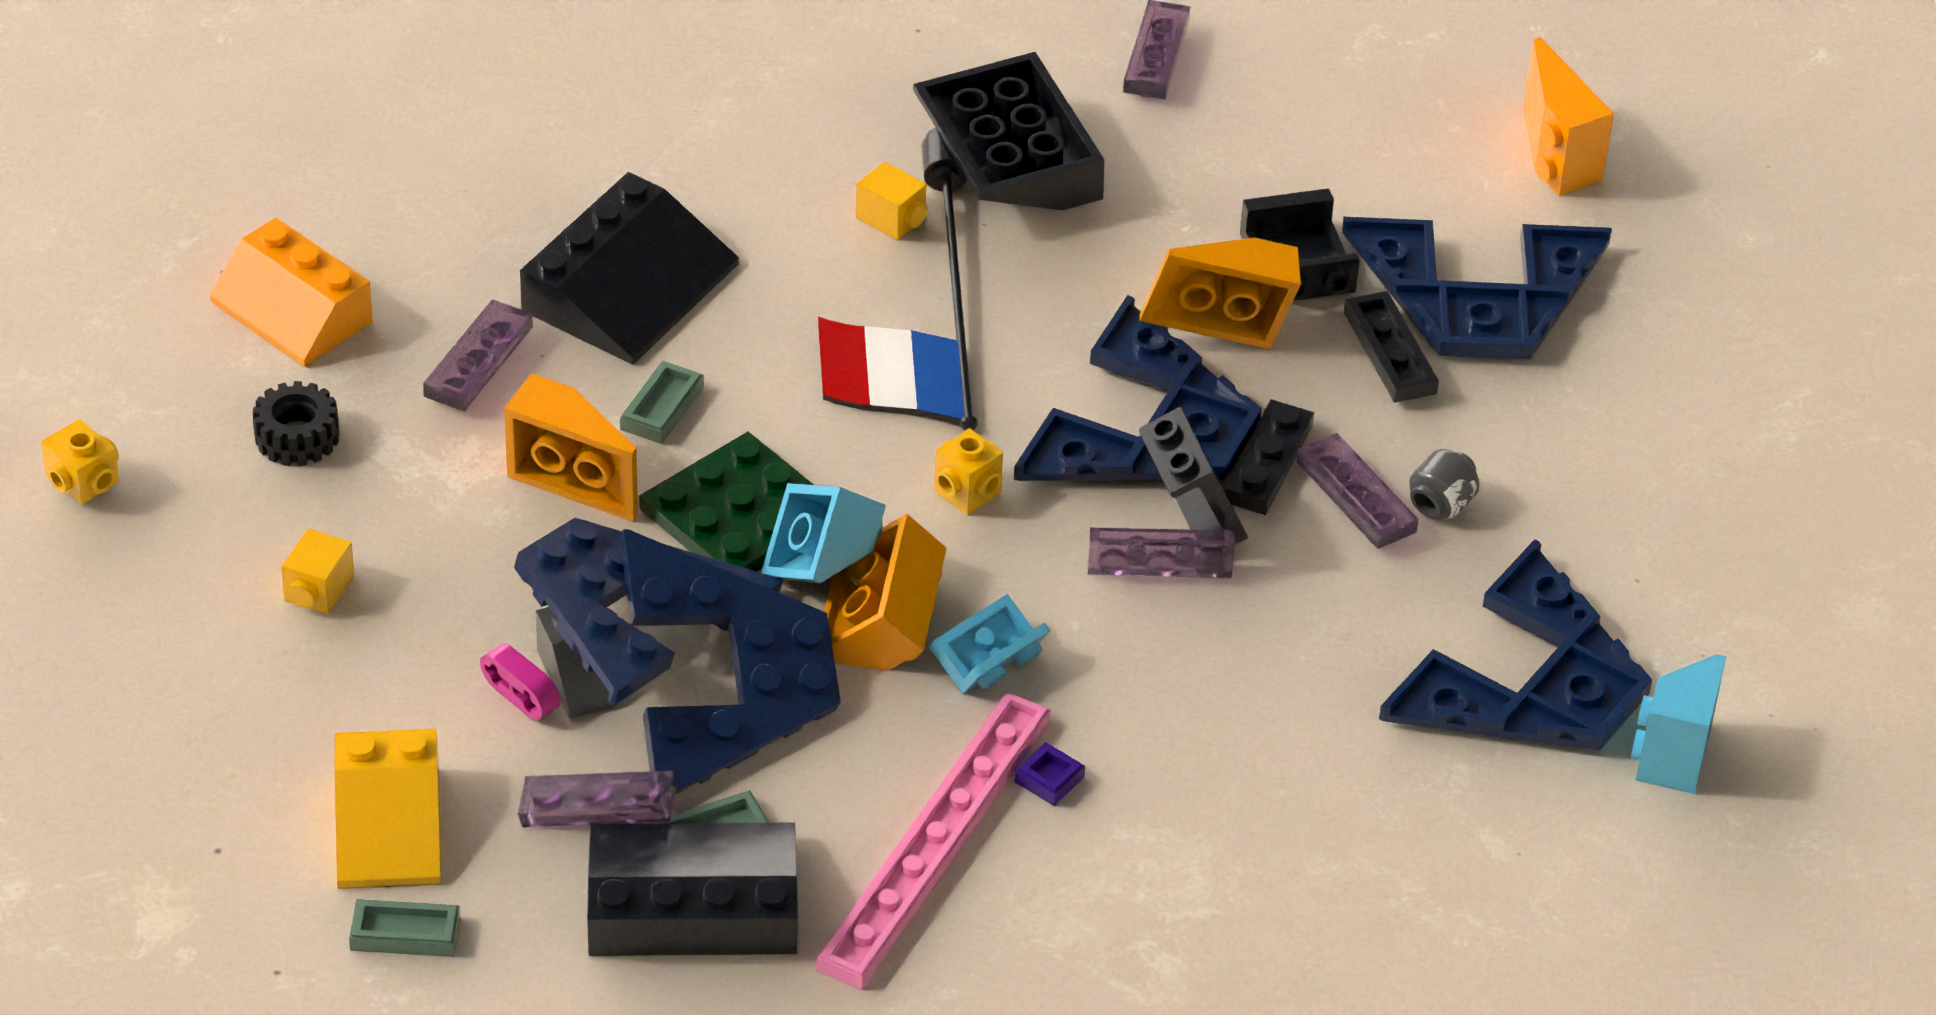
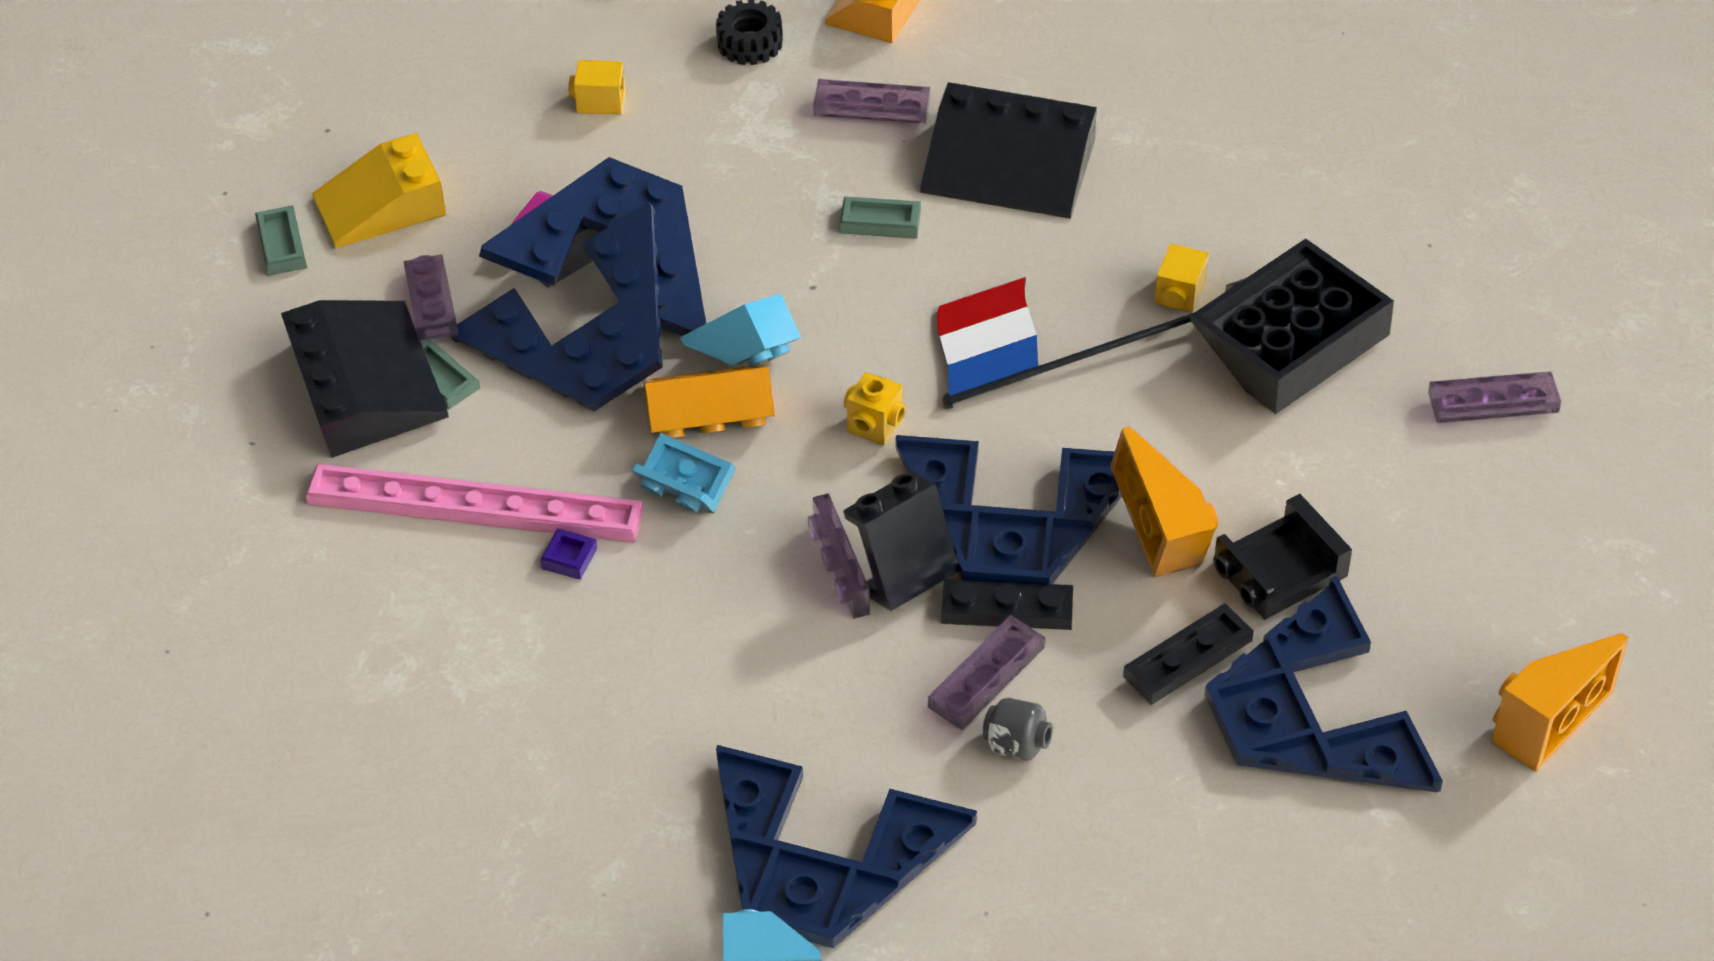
camera: 75 degrees right, 5 degrees up
(569, 448) = (775, 165): light orange slope -> none
(725, 502) = (809, 282): dark green plate -> none

